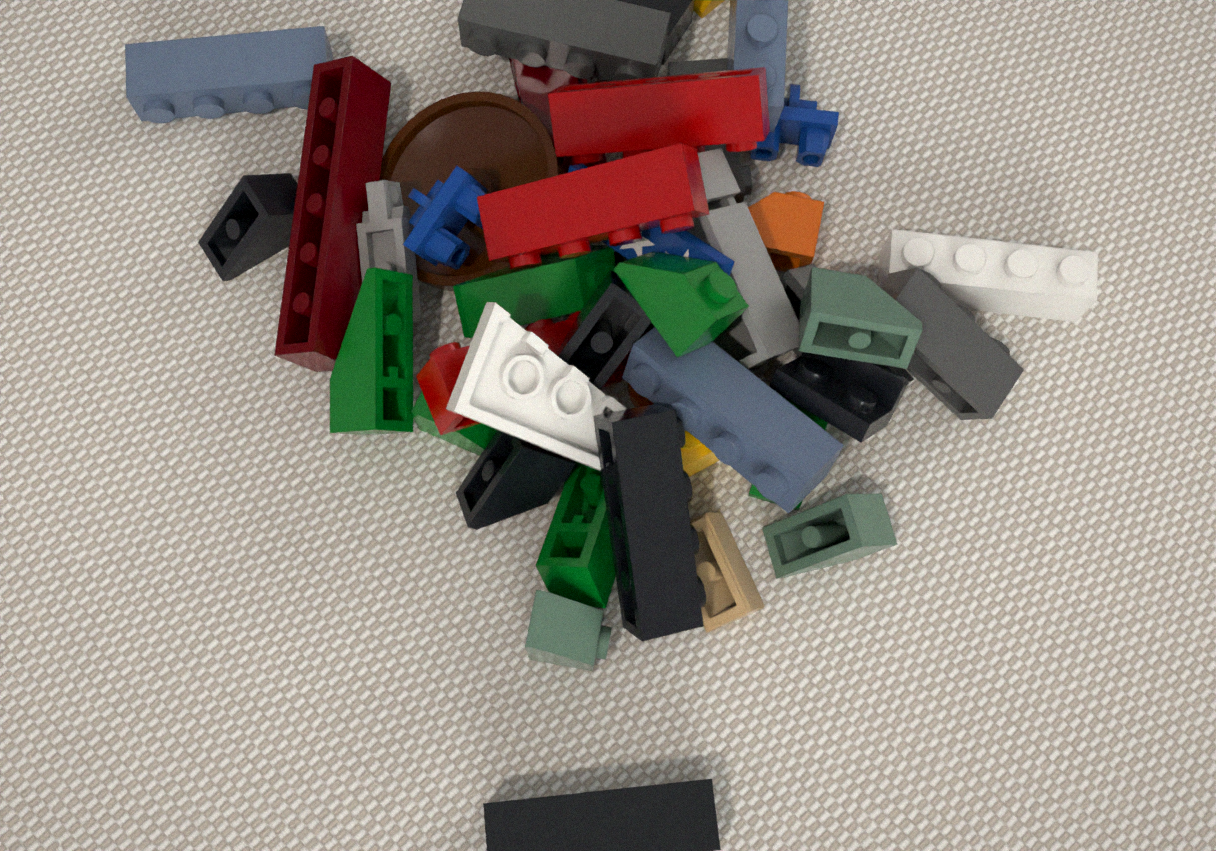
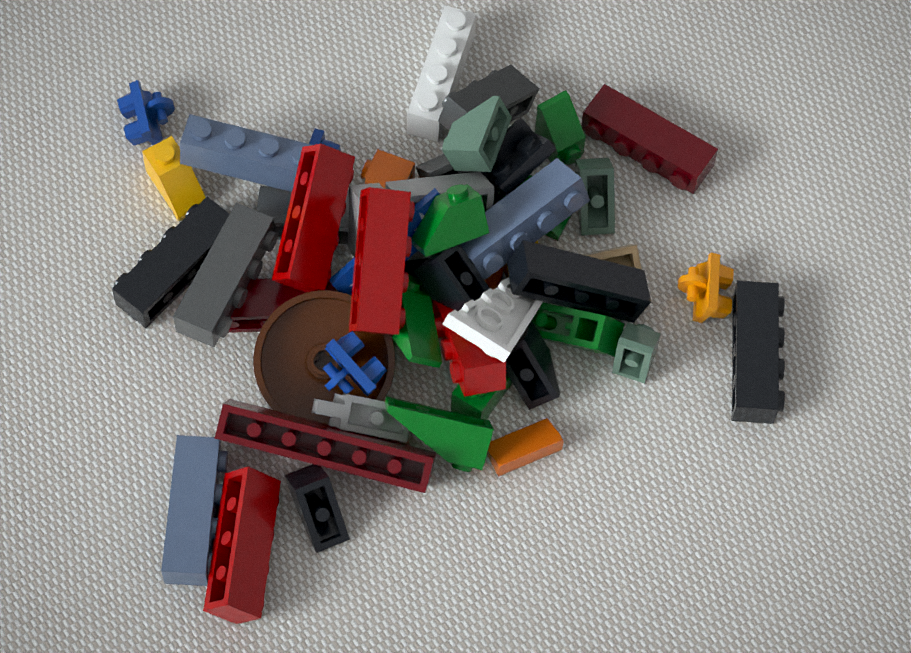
camera: 80 degrees left, 10 degrees down
(177, 140) = (242, 546): none -> red brick
(392, 491) = (524, 446): none -> orange slope
(698, 726) = (703, 287): none -> light orange hips
(923, 459) = (560, 124): none -> green slope
(950, 605) = (648, 139): none -> dark red brick

